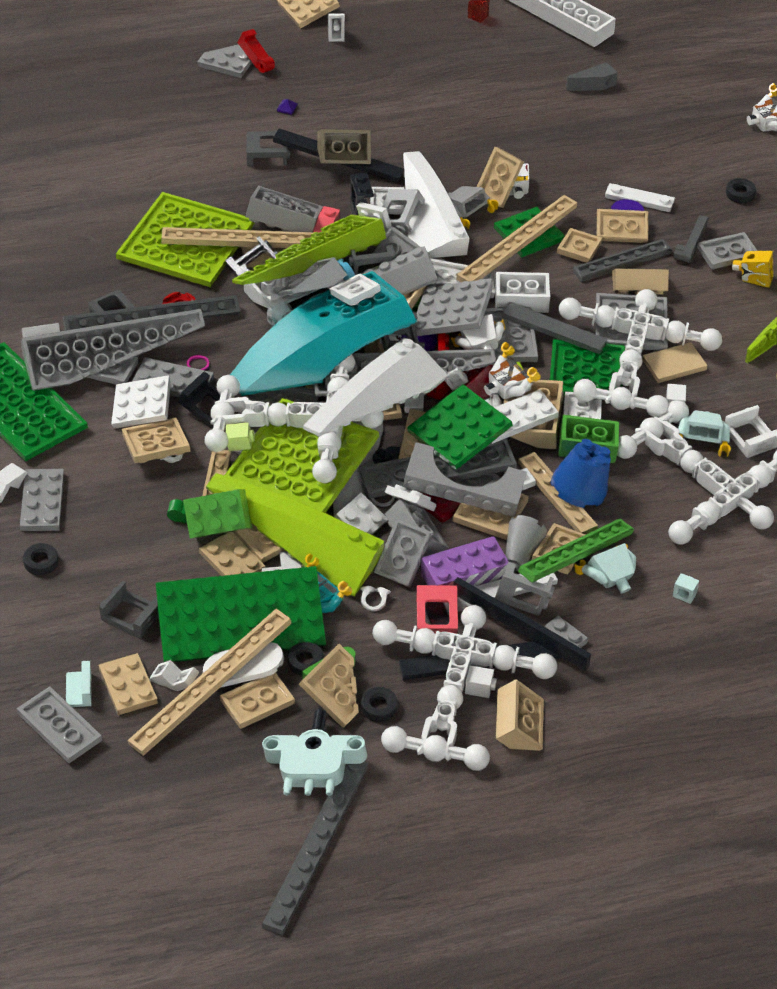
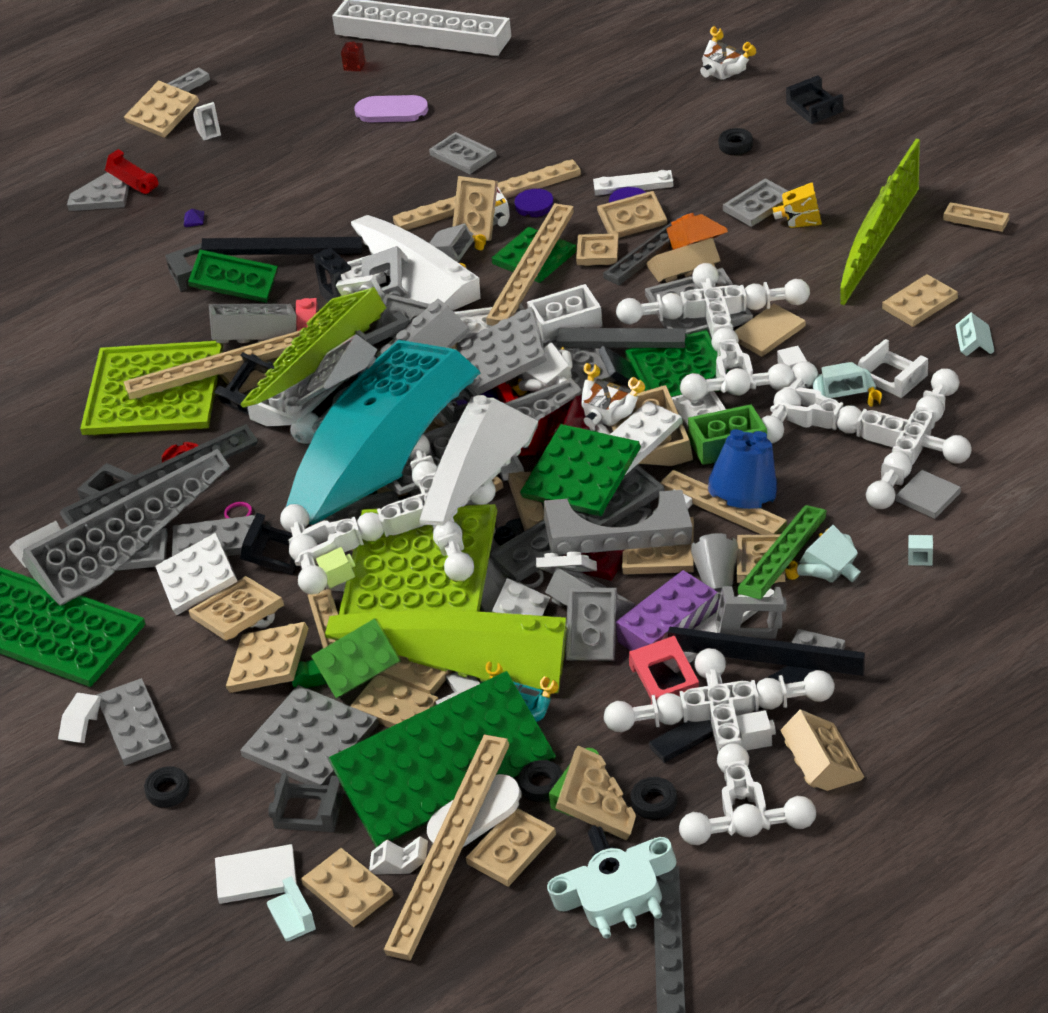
camera: 15 degrees left, 5 degrees down
(59, 724) = (290, 963): light grey plate -> none
(69, 648) = (254, 873): none -> white tile
(158, 487) = (267, 657): none -> tan plate
(158, 556) = (305, 735): none -> light grey plate
(288, 168) = (233, 276): none -> green plate
(344, 146) = (286, 232): dark tan slope -> none
(355, 289) = (394, 362): white plate -> none
(383, 593) = (587, 675): white piece -> none
(456, 379) = (546, 424): white slope -> none
(485, 65) = (391, 108): none -> lavender tile
(521, 123) = (462, 153): none -> light grey tile
(536, 167) = (509, 188): none -> tan plate
(538, 354) = (617, 366): none -> tile
(552, 186) = (534, 202): none -> dark purple tile
(594, 78) = (516, 84): dark grey slope -> none
(657, 258) = (693, 229): none -> orange slope
(687, 252) = (717, 205): dark grey beam -> none
(720, 545) = (928, 494): none -> light grey tile

